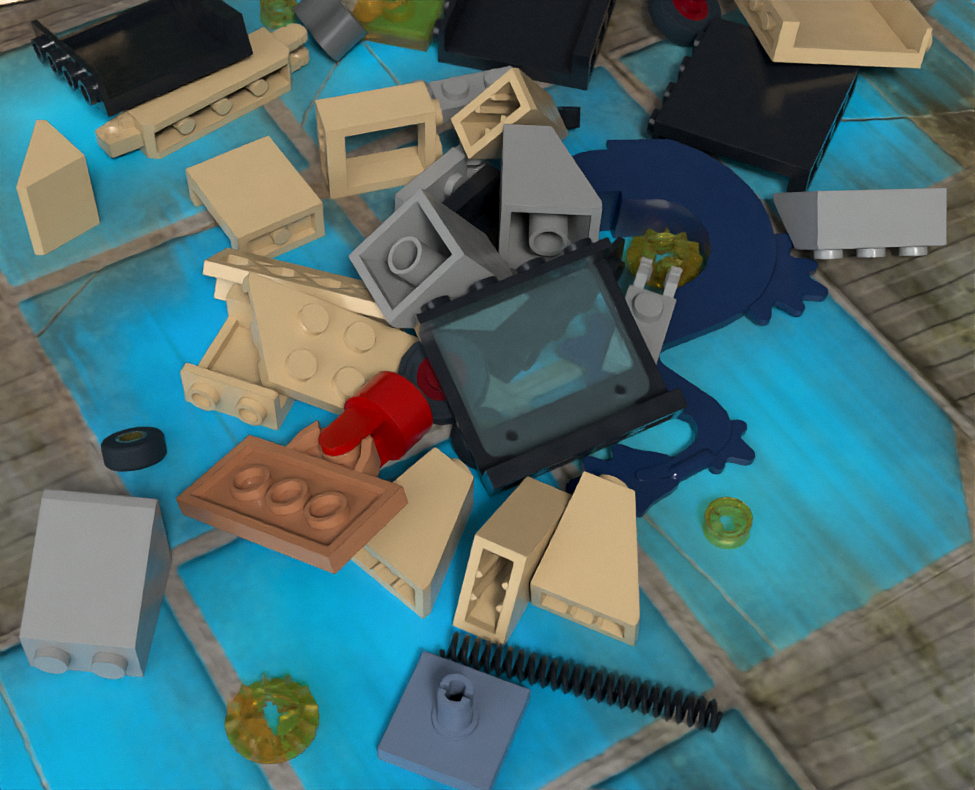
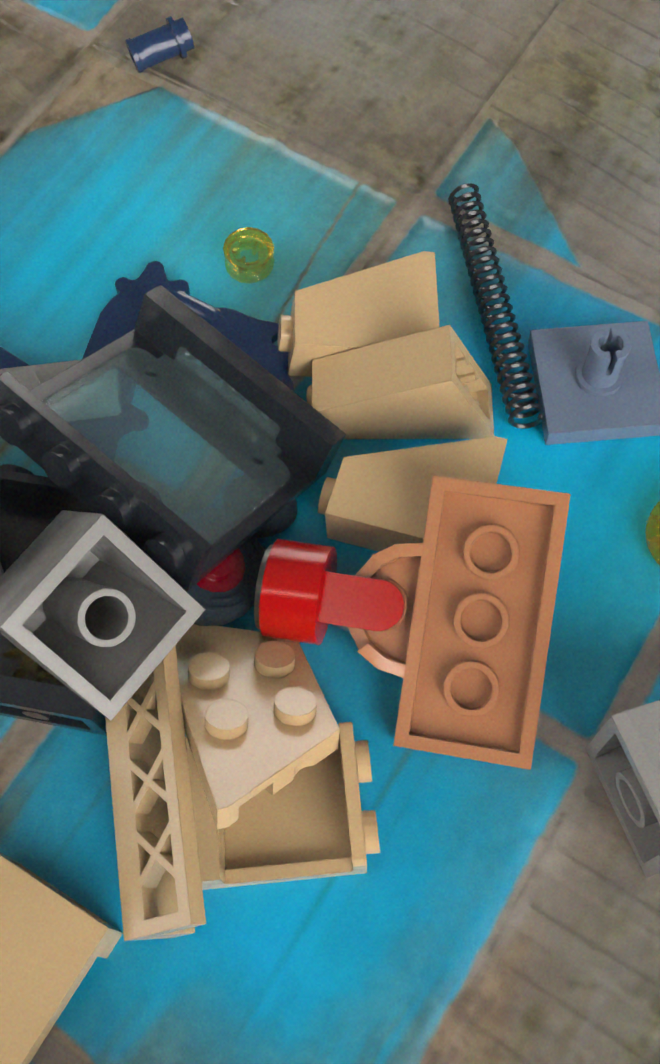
camera: 110 degrees left, 15 degrees up
(133, 449) = (497, 868): black wheel -> none

